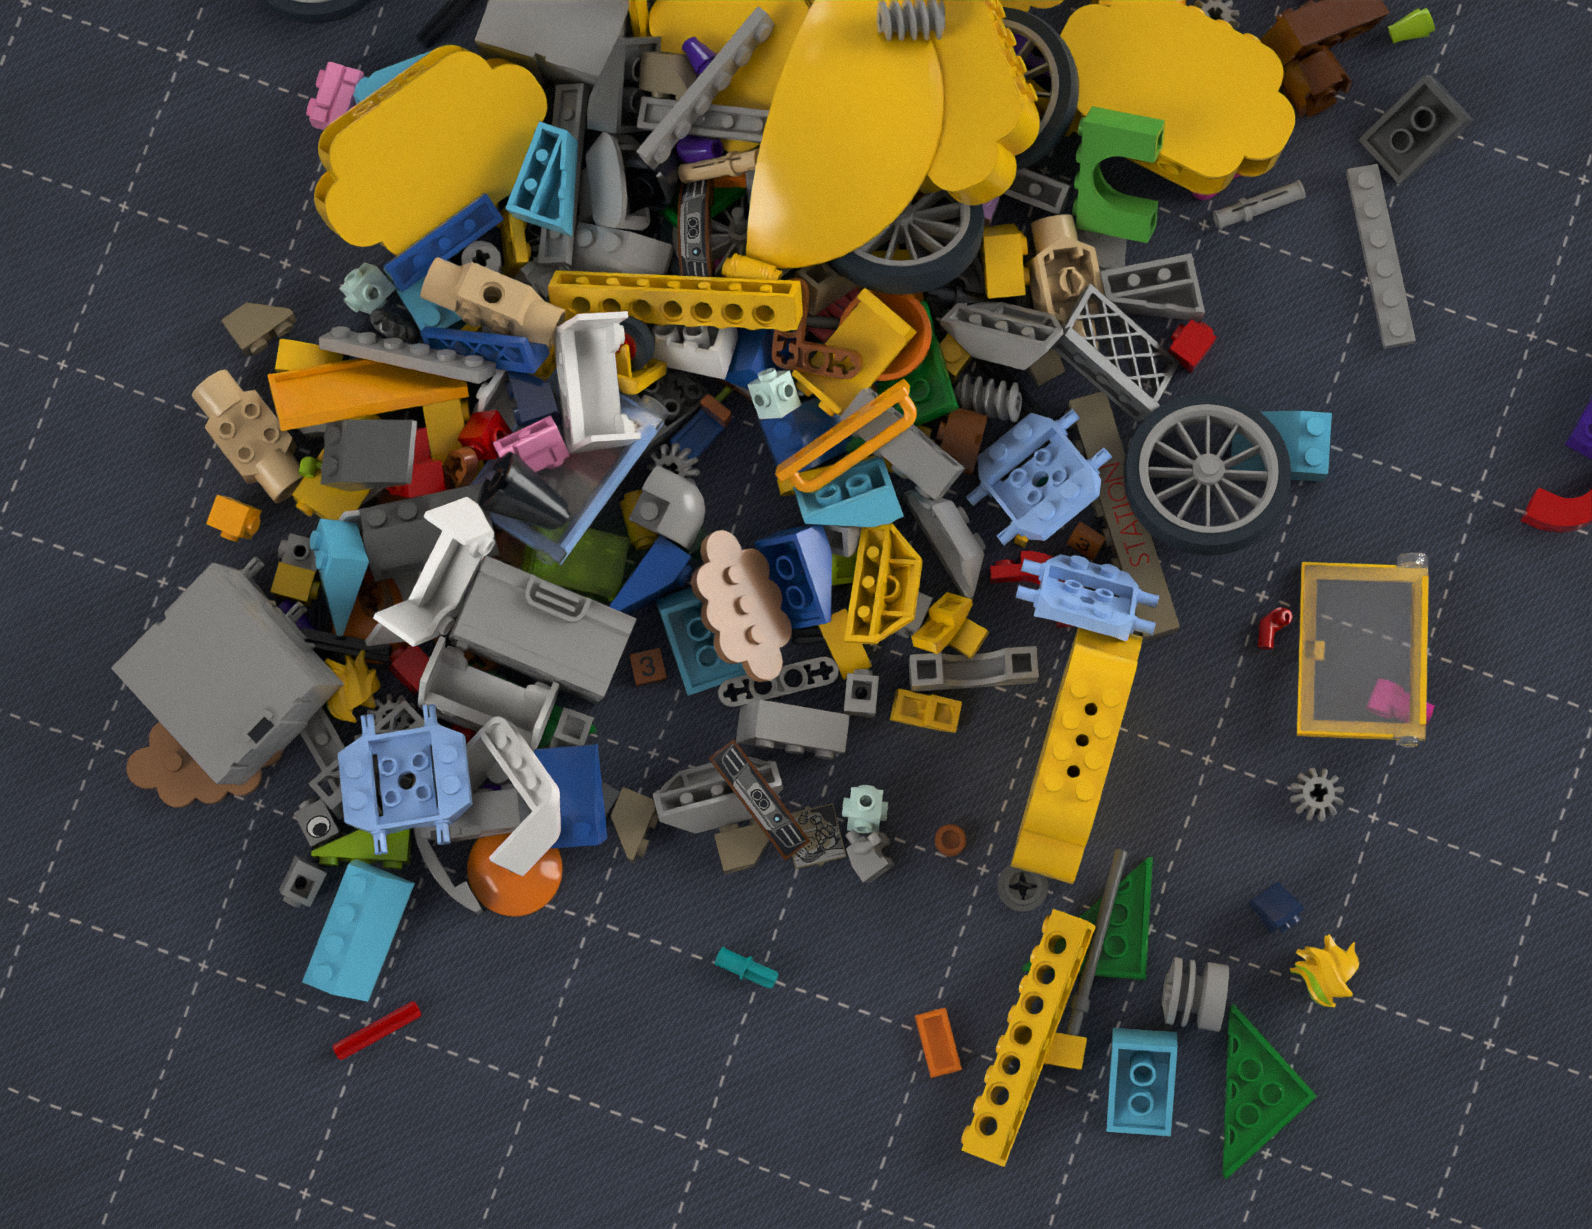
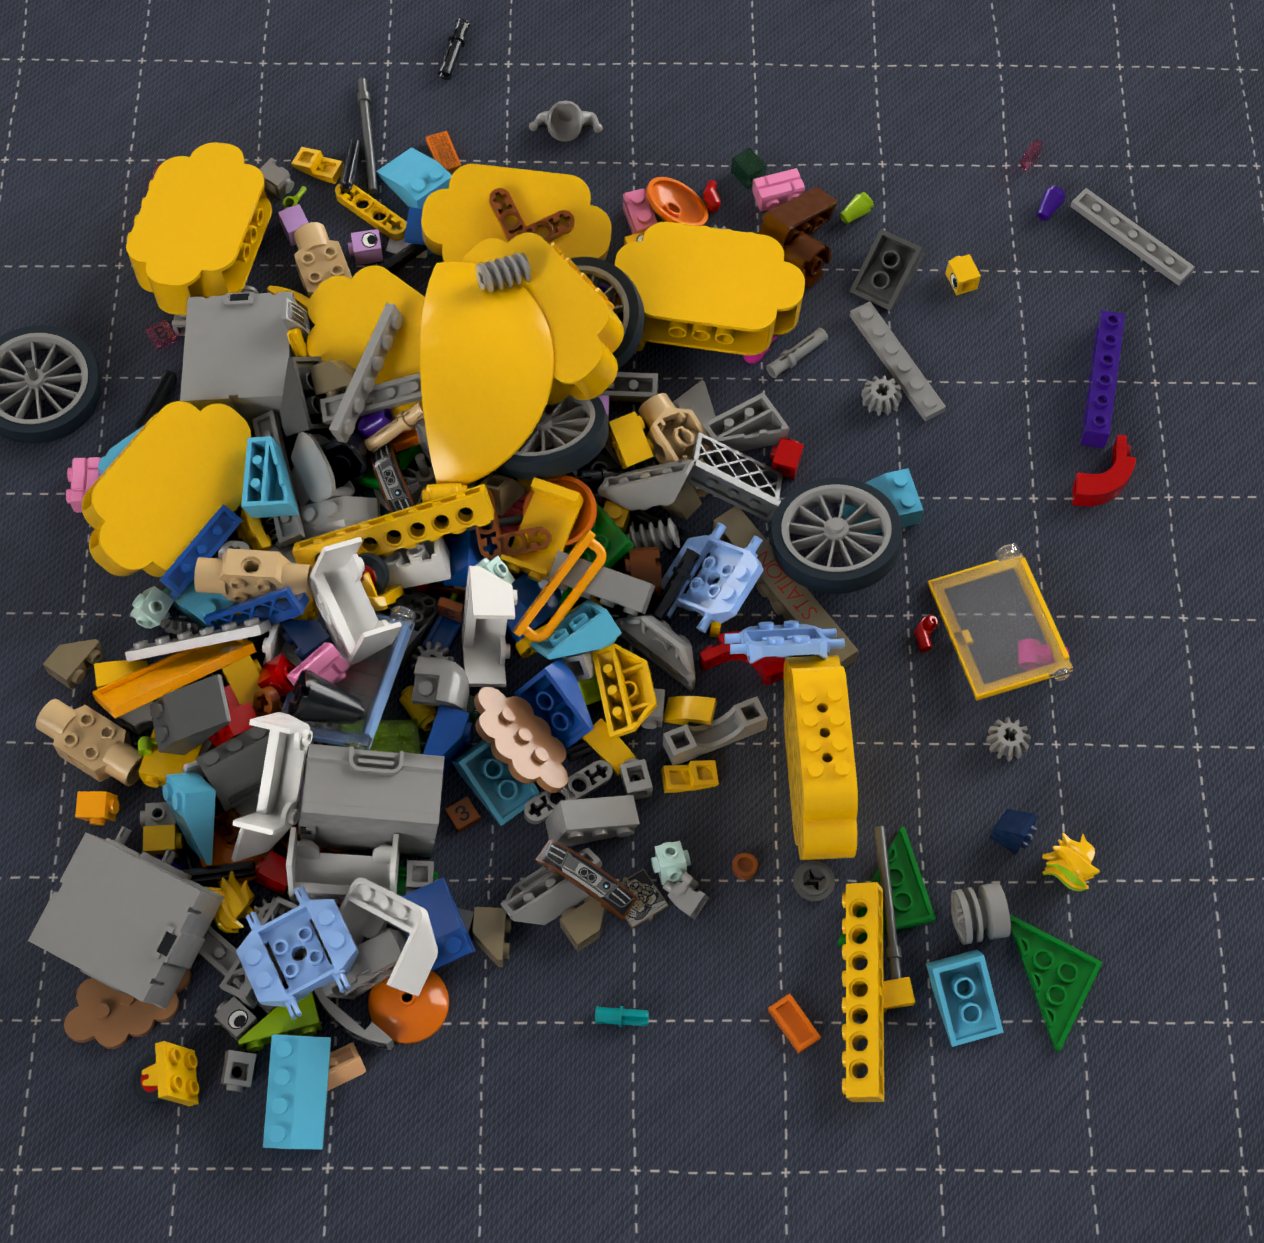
camera: 20 degrees left, 15 degrees down
(223, 863) = (167, 1076): none -> yellow plate
(376, 1030) = (337, 1170): red axle -> none
(421, 915) = (344, 1066): none -> light nougat slope
(698, 54) = (351, 355): dark purple cone -> none
(746, 452) = (485, 616): none -> white windscreen
(945, 621) = (680, 704): yellow slope -> none
(991, 471) = (677, 581): none -> black pin
(1086, 540) = (763, 613): dark orange tile -> none
(1098, 205) = (684, 381): bright green arch -> none
(1335, 310) = (881, 395): none -> light grey gear
(1510, 165) = (963, 274): none -> yellow brick

